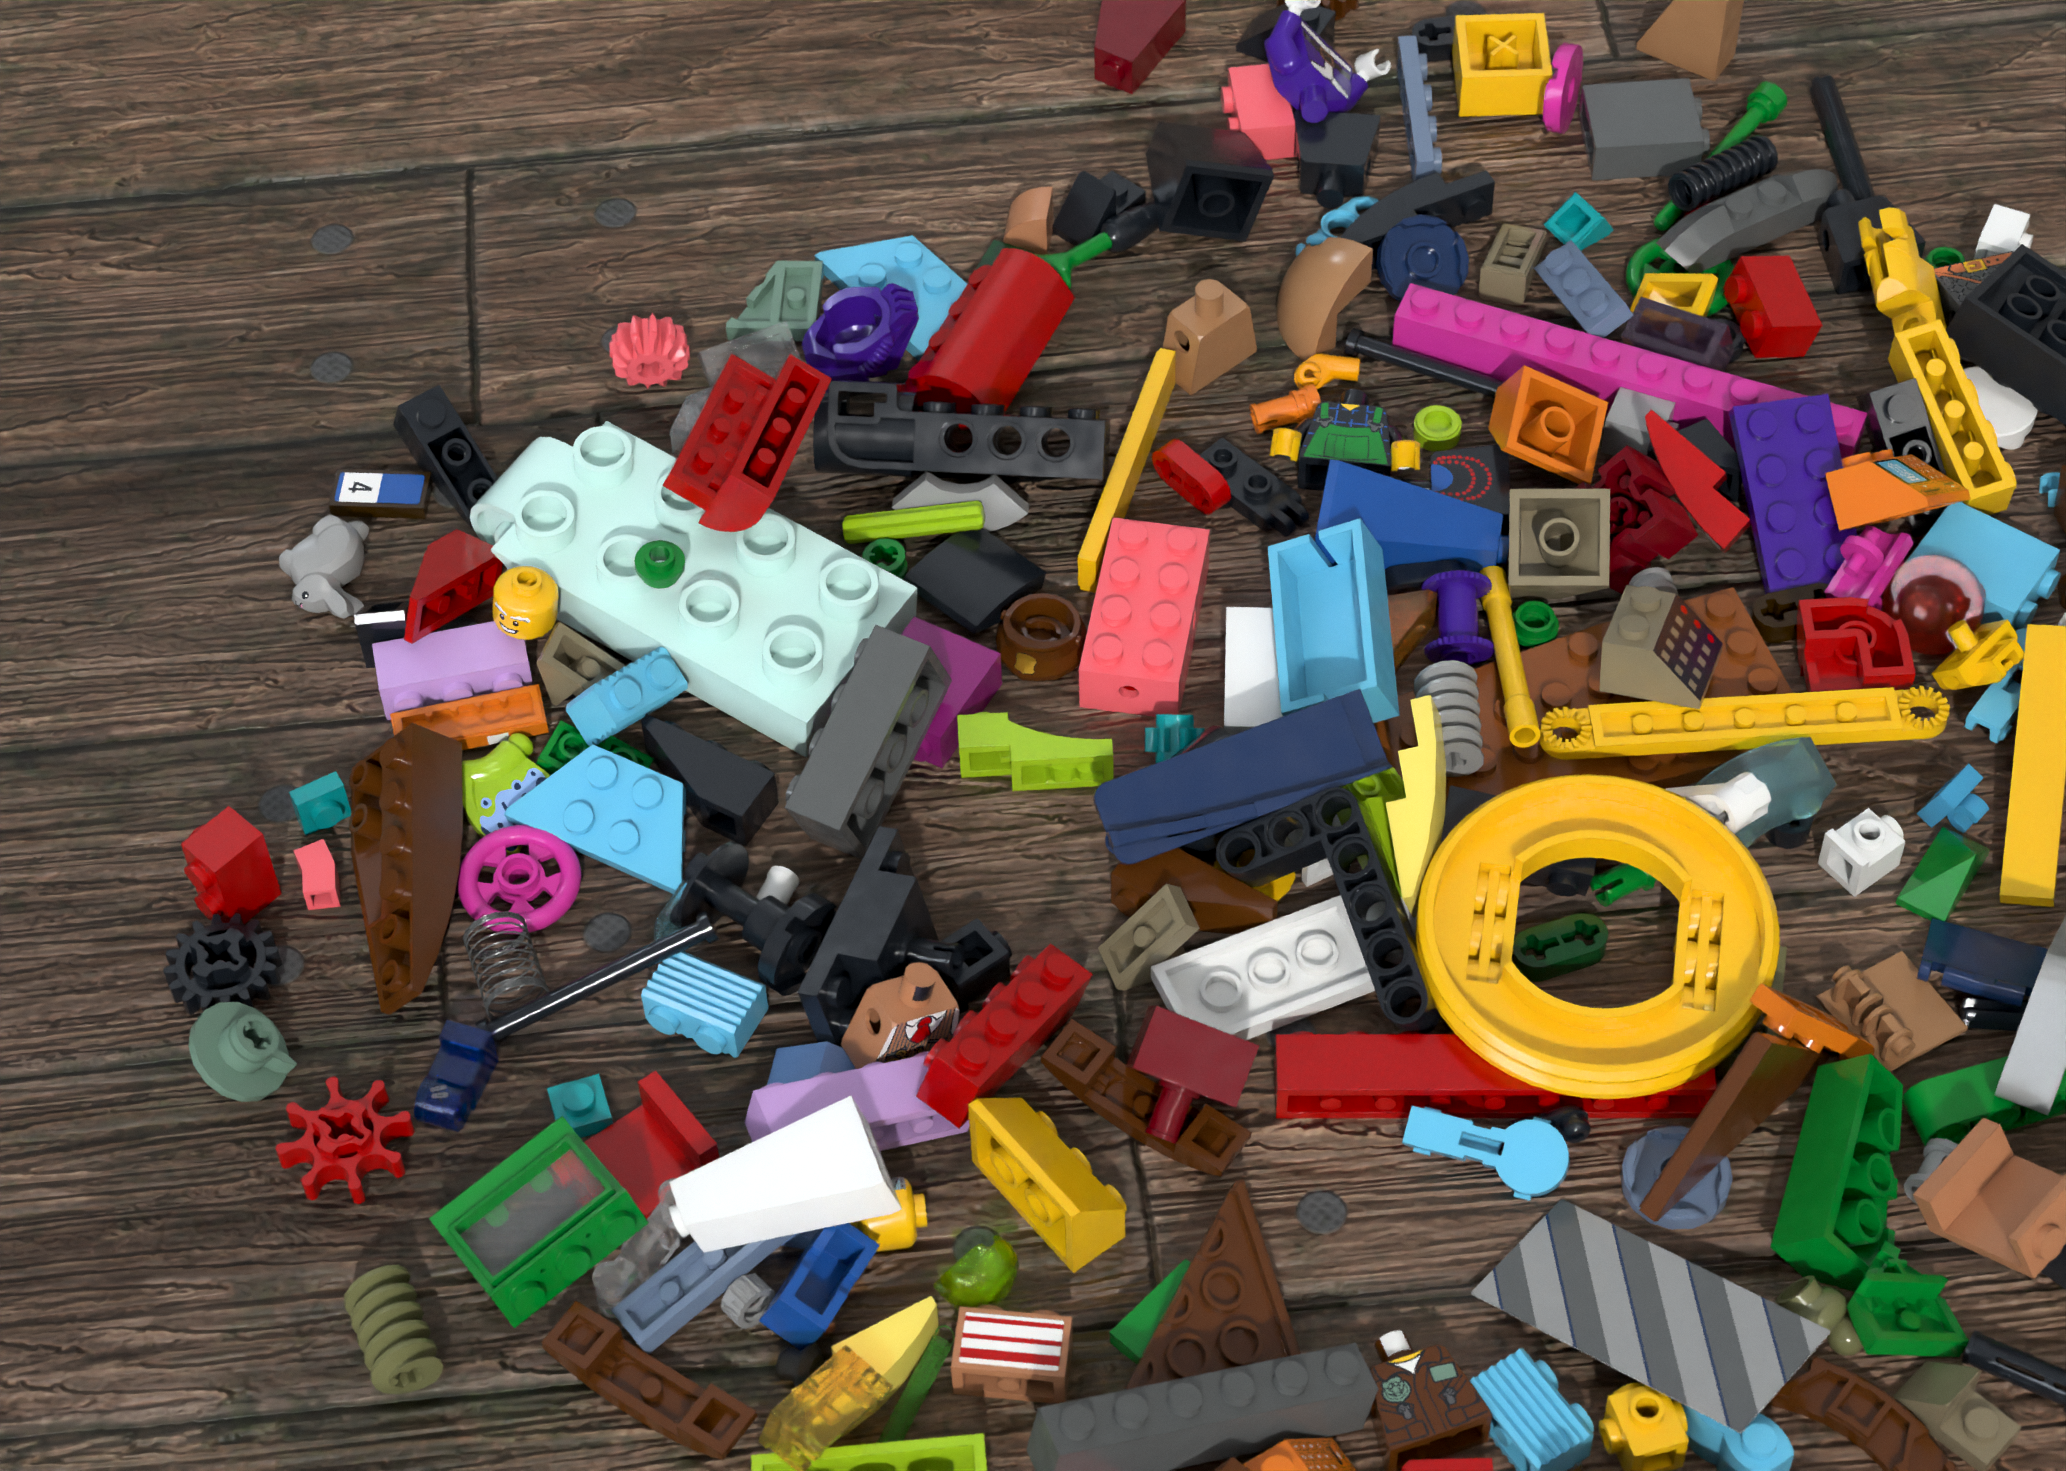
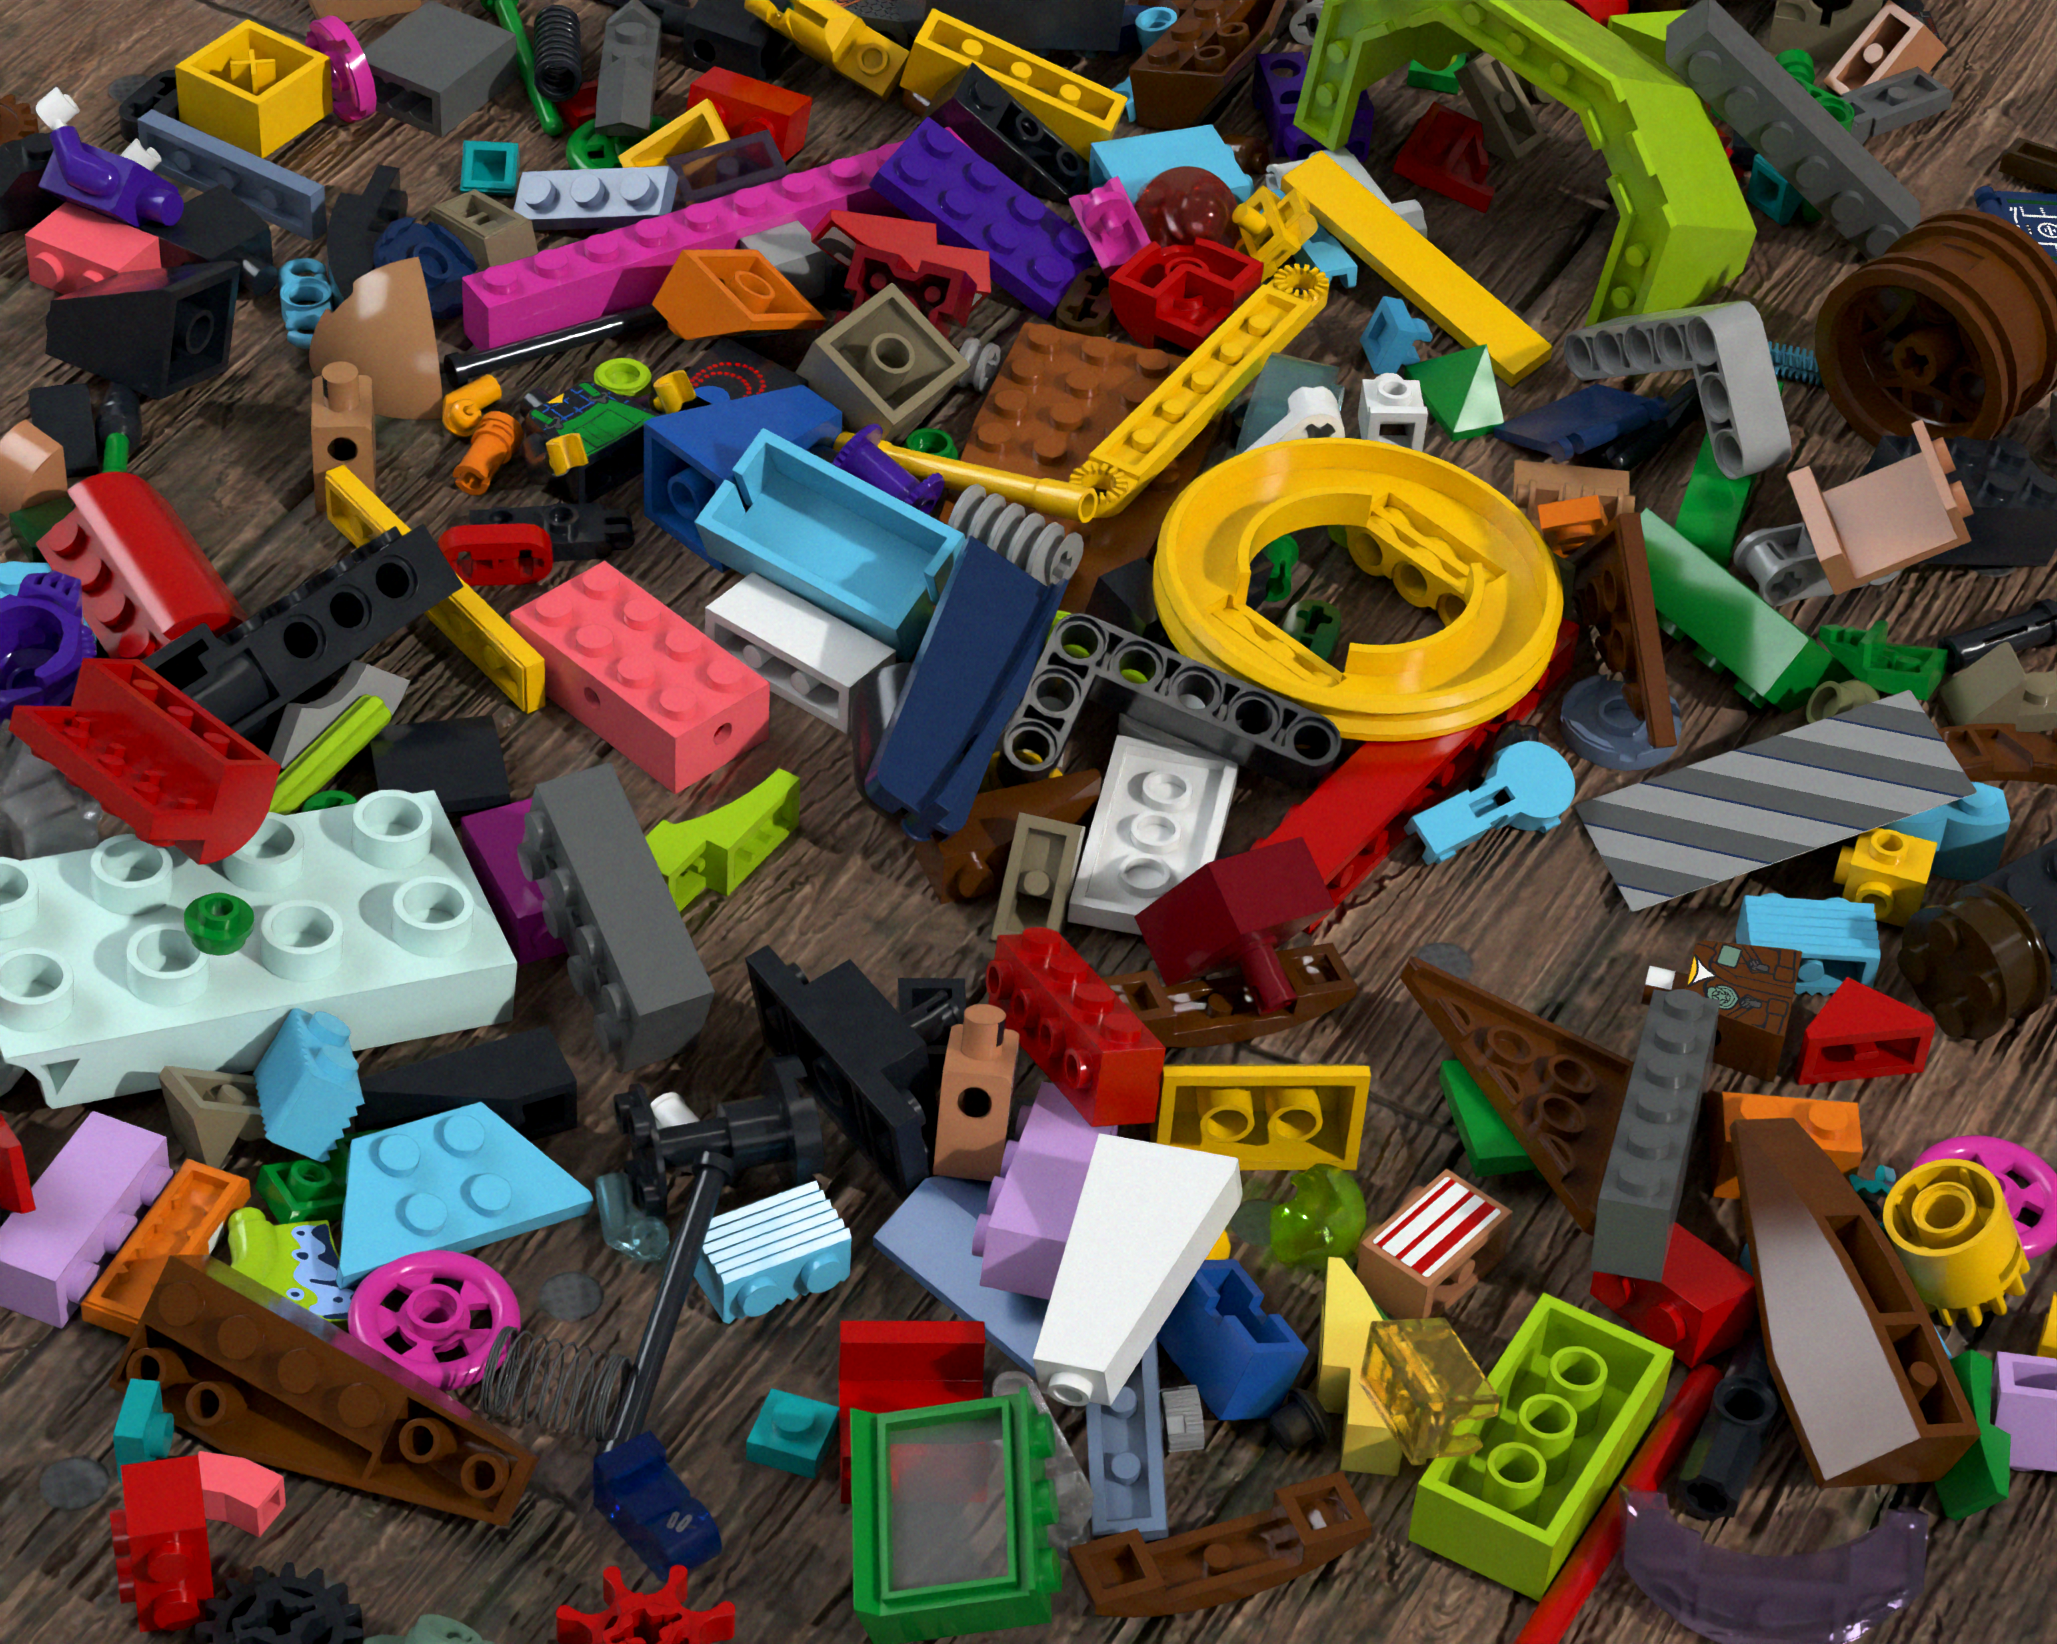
camera: 60 degrees left, 10 degrees down
(525, 602) = (108, 1076): yellow head -> none
(1041, 637) = (561, 746): reddish brown hat -> none
(1170, 735) = (813, 738): teal gear -> none
(1420, 817) = (1103, 581): light yellow slope -> none
(1658, 649) = (1073, 382): dark tan slope -> none
(1887, 488) = (1059, 159): orange slope -> none

